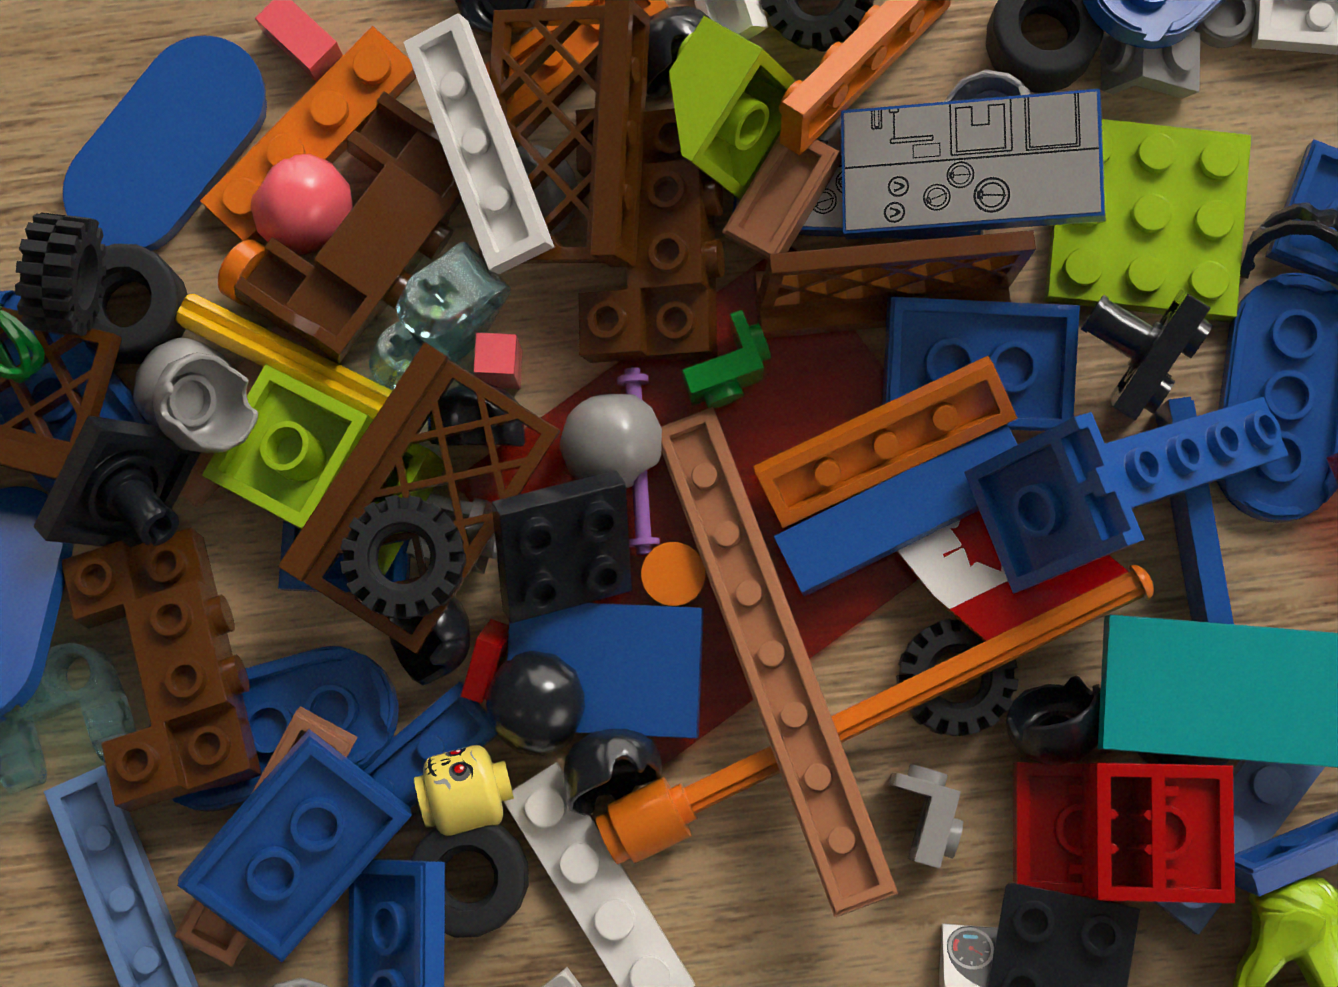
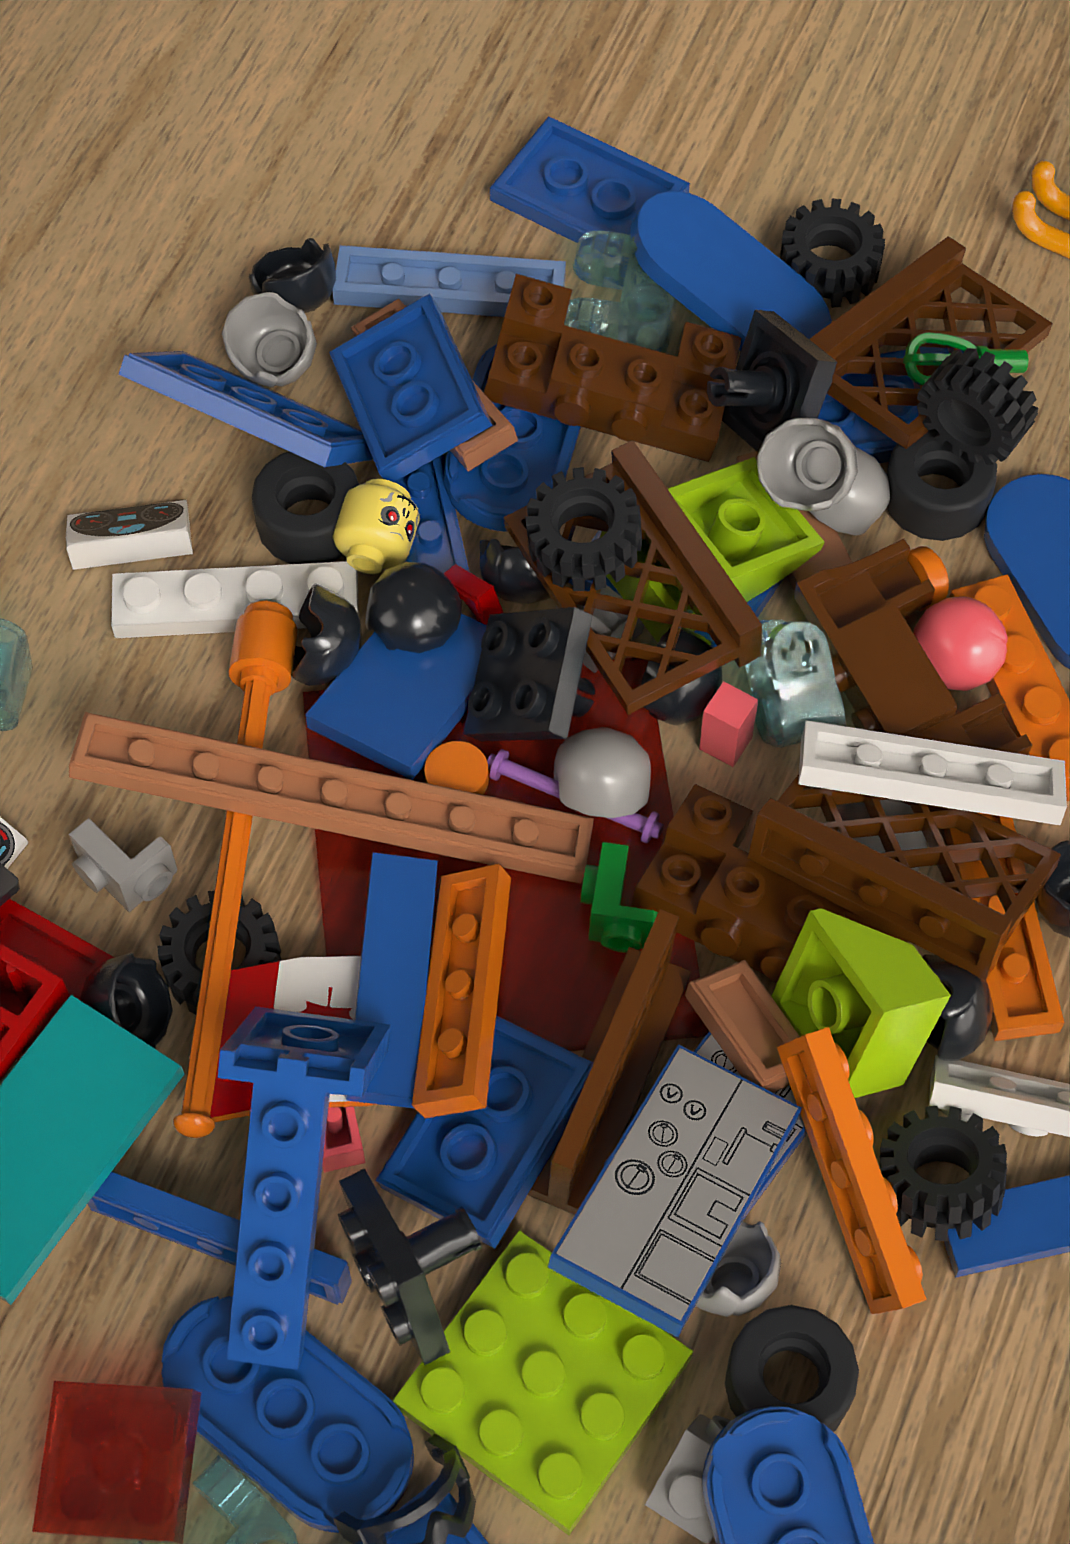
camera: 115 degrees right, 20 degrees down
(281, 354) = (876, 533): yellow axle -> none

